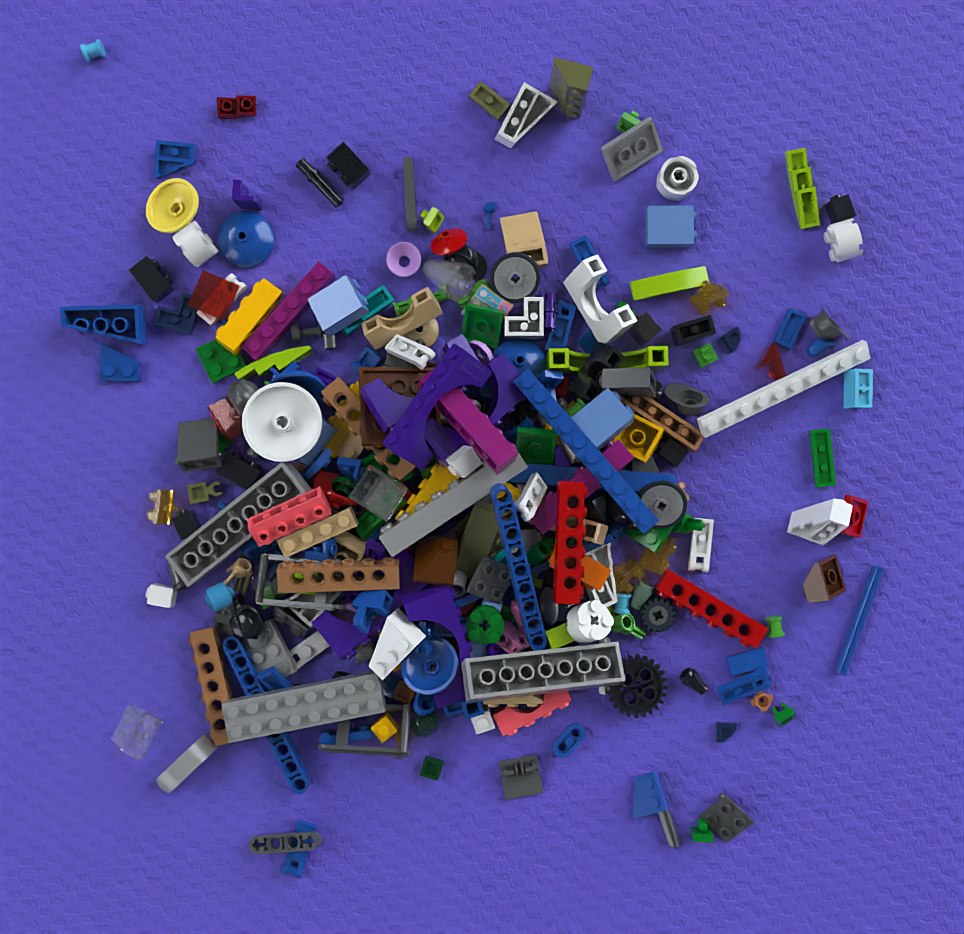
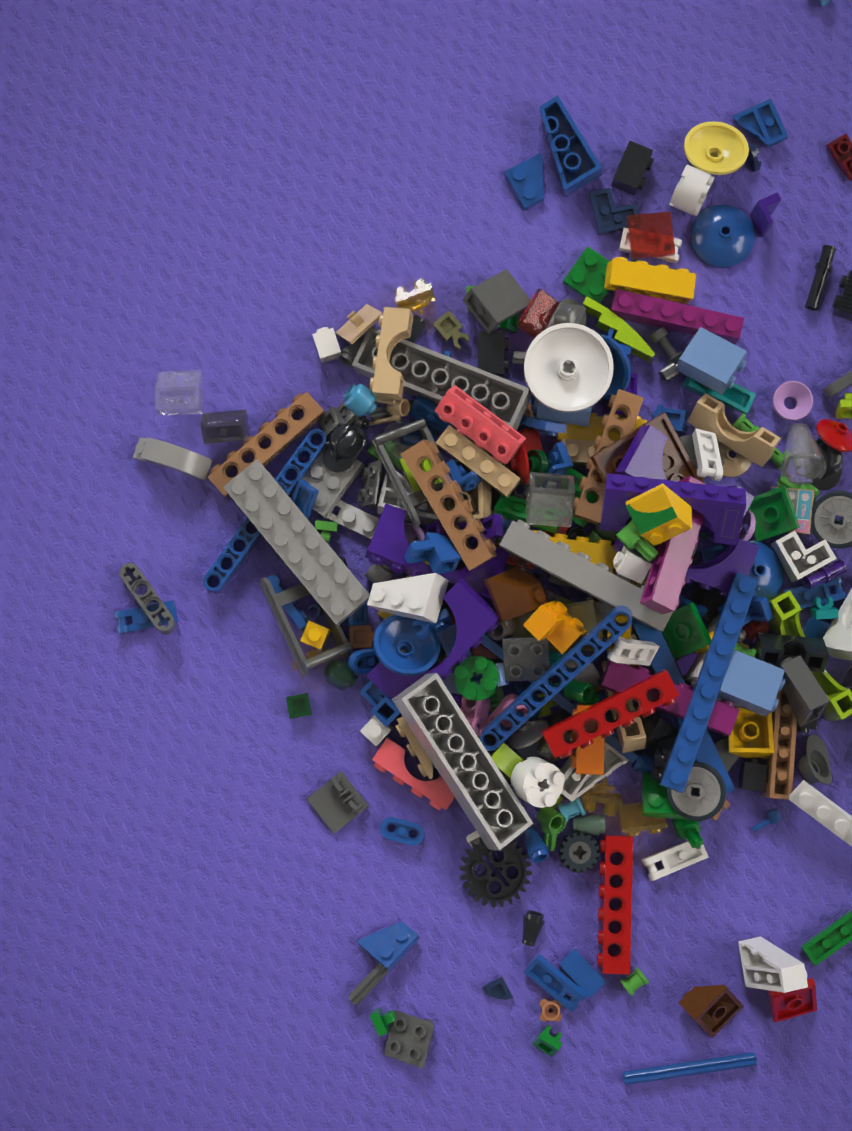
camera: 65 degrees right, 5 degrees down
(158, 562) = (358, 323): none -> tan piece
(176, 539) = (395, 327): none -> tan arch
(182, 710) = (224, 426): none -> clear smoke brick
(194, 180) = (752, 157): none -> dark blue tile
(307, 674) = (326, 529): none -> bright green tile
(437, 421) = (660, 514): none -> yellow slope
(444, 448) = (633, 540): none -> bright green axle
(478, 544) = (556, 625): none -> light orange brick
(578, 327) = (823, 611): none -> teal tile
(636, 646) = (536, 848): none -> blue cone
(710, 453) = (773, 817): none -> blue hand

